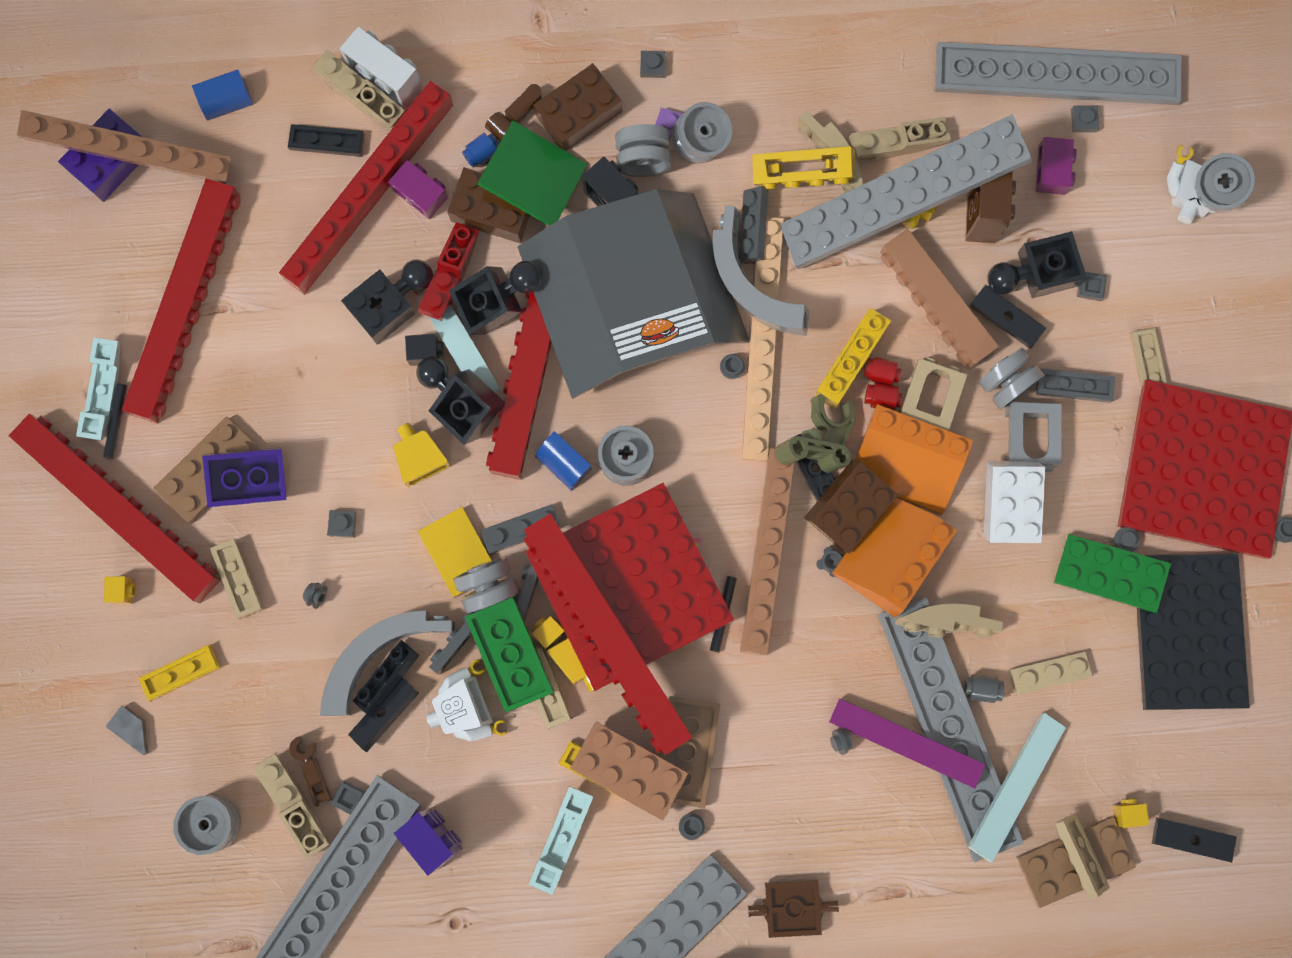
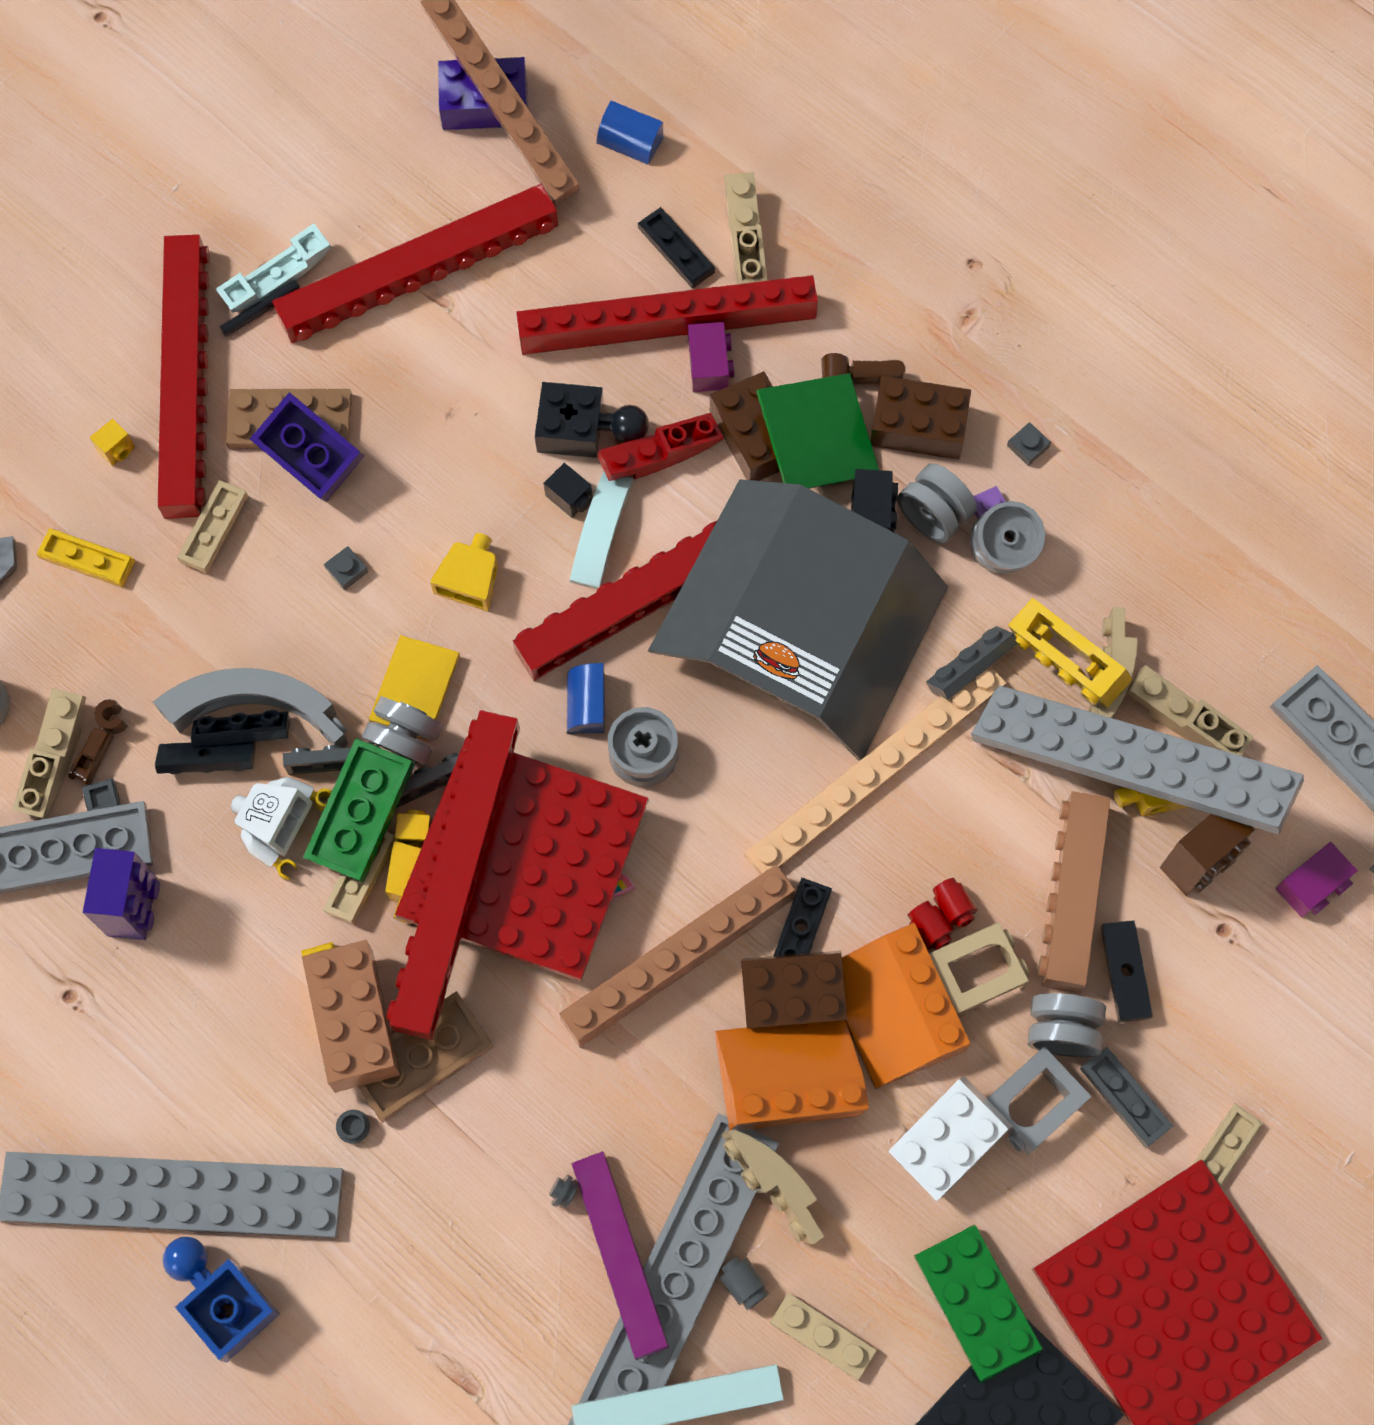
camera: 45 degrees right, 10 degrees down
(315, 594) = (259, 602): dark grey plate -> none
(382, 67) = (784, 226): white brick -> none
(465, 402) = (553, 565): black brick -> none
(480, 149) = (796, 371): blue brick -> none
(489, 297) = (668, 497): black brick -> none
(512, 531) = (462, 708): dark grey plate -> none
(561, 840) = (231, 1019): light aqua slope -> none
(727, 596) = (594, 965): black bar -> none
(732, 366) = (822, 766): dark grey plate -> none
(771, 312) = (900, 697): light grey arch -> none
(793, 908) = (360, 1294): reddish brown plate -> none
(824, 444) = (827, 911): olive piece -> none
(829, 554) = (720, 1018): dark grey plate -> none
(853, 357) = (937, 862): yellow brick -> none
(1040, 276) = (1210, 941): black brick -> none
(1093, 287) = (1239, 1024): dark grey tile -> none
(1127, 539) = (1027, 1289): dark grey plate -> none

